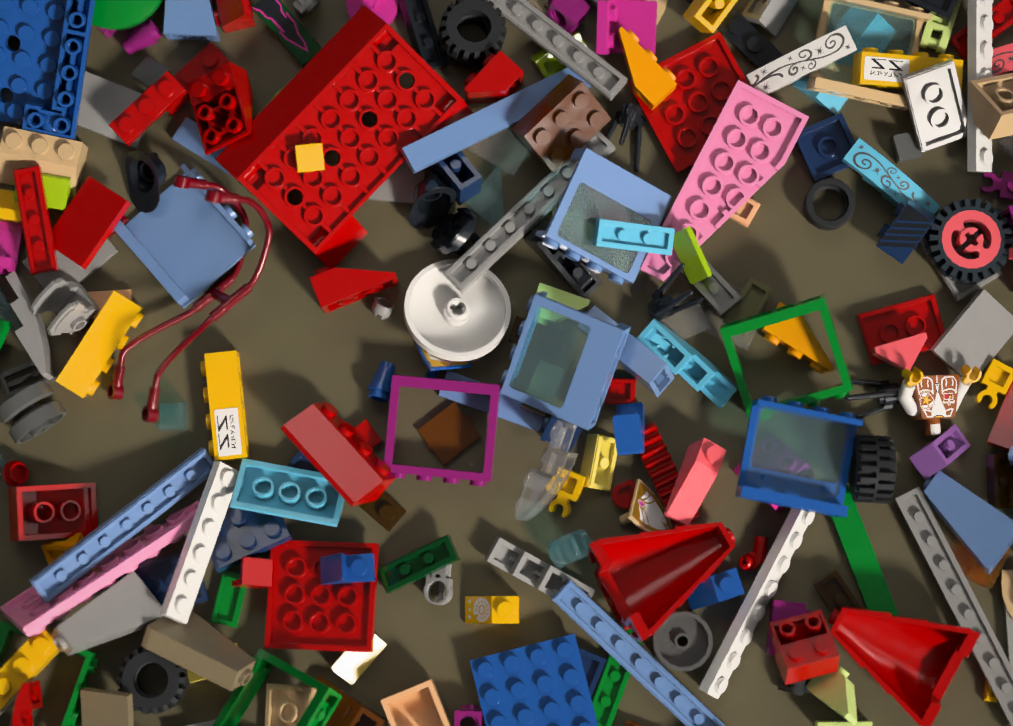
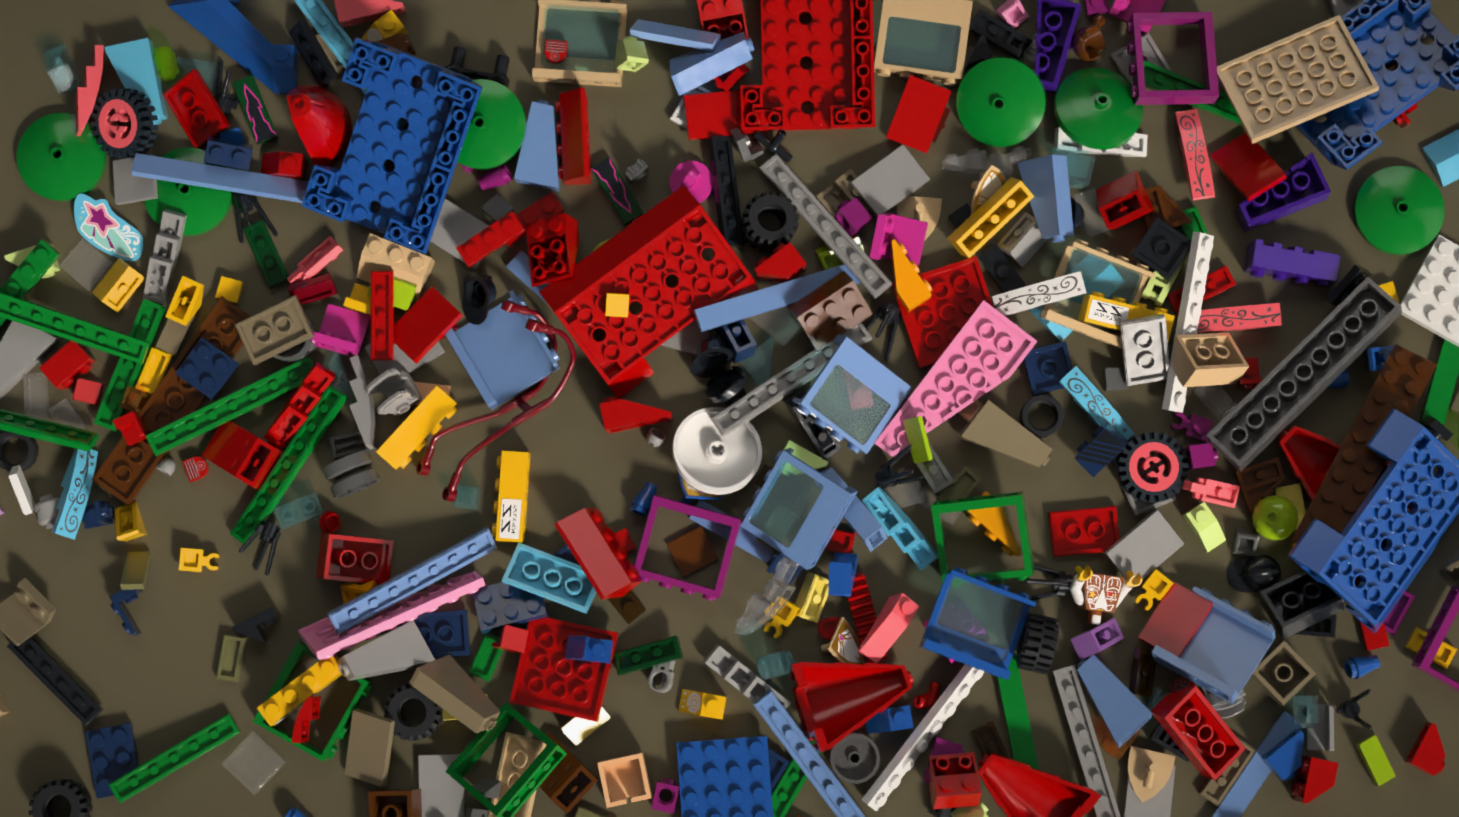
camera: 15 degrees right, 0 degrees up
(199, 543) = (471, 606): white plate -> none
(633, 236) = (873, 416): medium azure plate -> none
(787, 233) = (1004, 435): none -> dark tan slope
(900, 353) = (1079, 551): coral slope -> none

